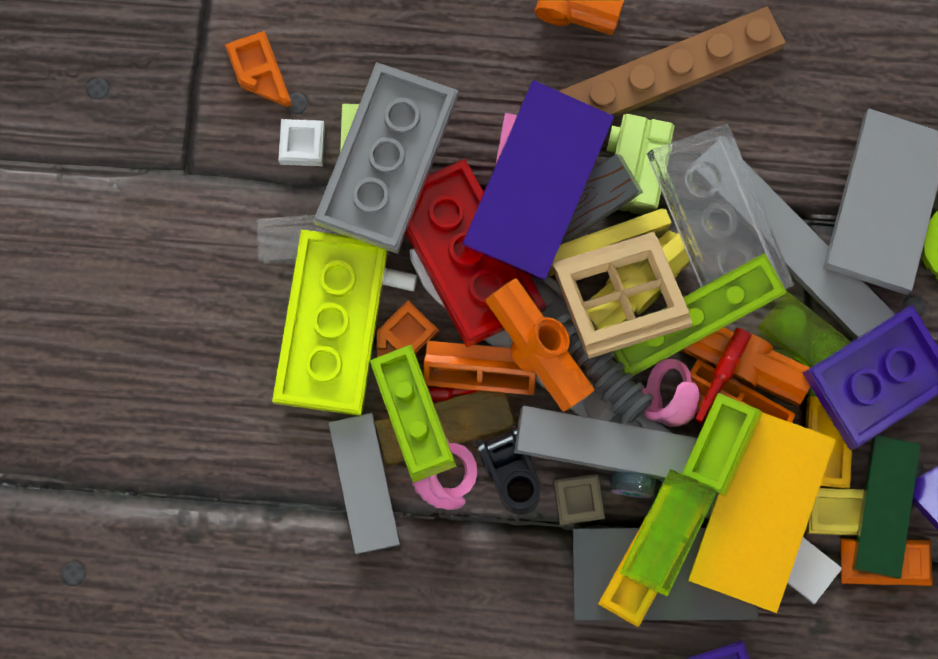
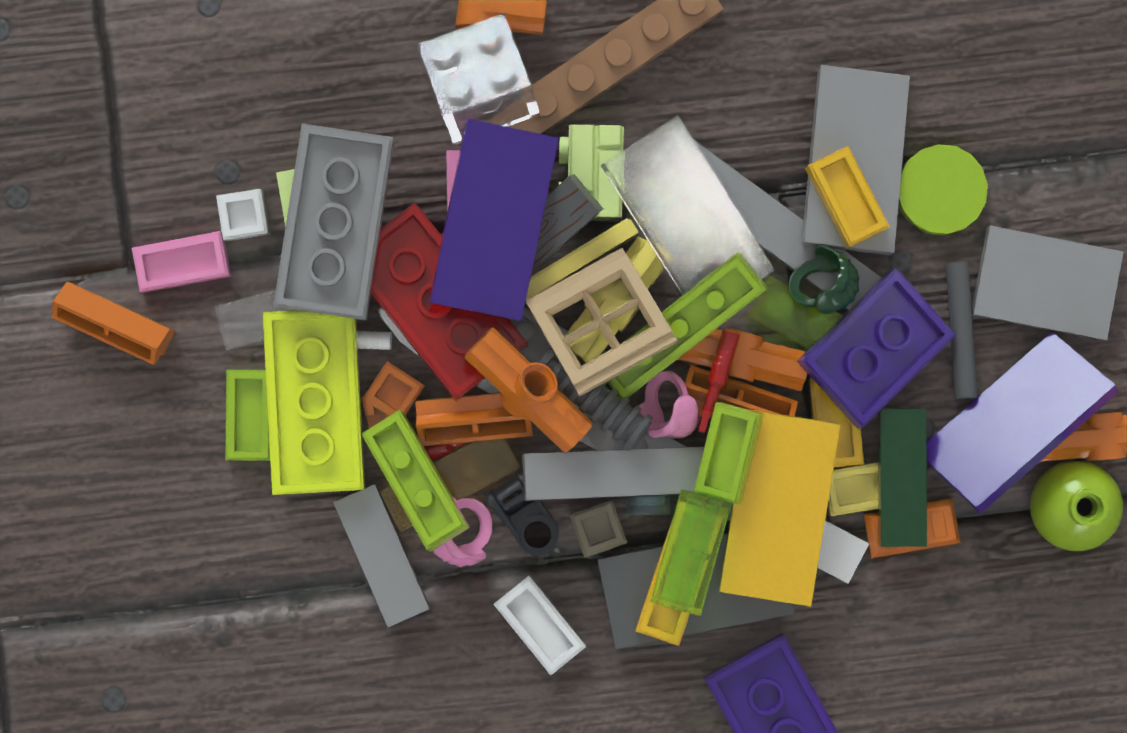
camera: 15 degrees left, 10 degrees up
(157, 214) = (111, 323): none -> orange piece
(235, 173) = (181, 262): none -> bright pink tile
(257, 68) = (179, 143): orange tile -> none
(264, 326) = (247, 416): none -> lime tile
(504, 582) = (540, 625): none -> white tile
(550, 48) = (479, 76): none -> clear brick
(849, 317) = (836, 297): none -> dark green piece
(875, 230) = (847, 197): none -> yellow tile

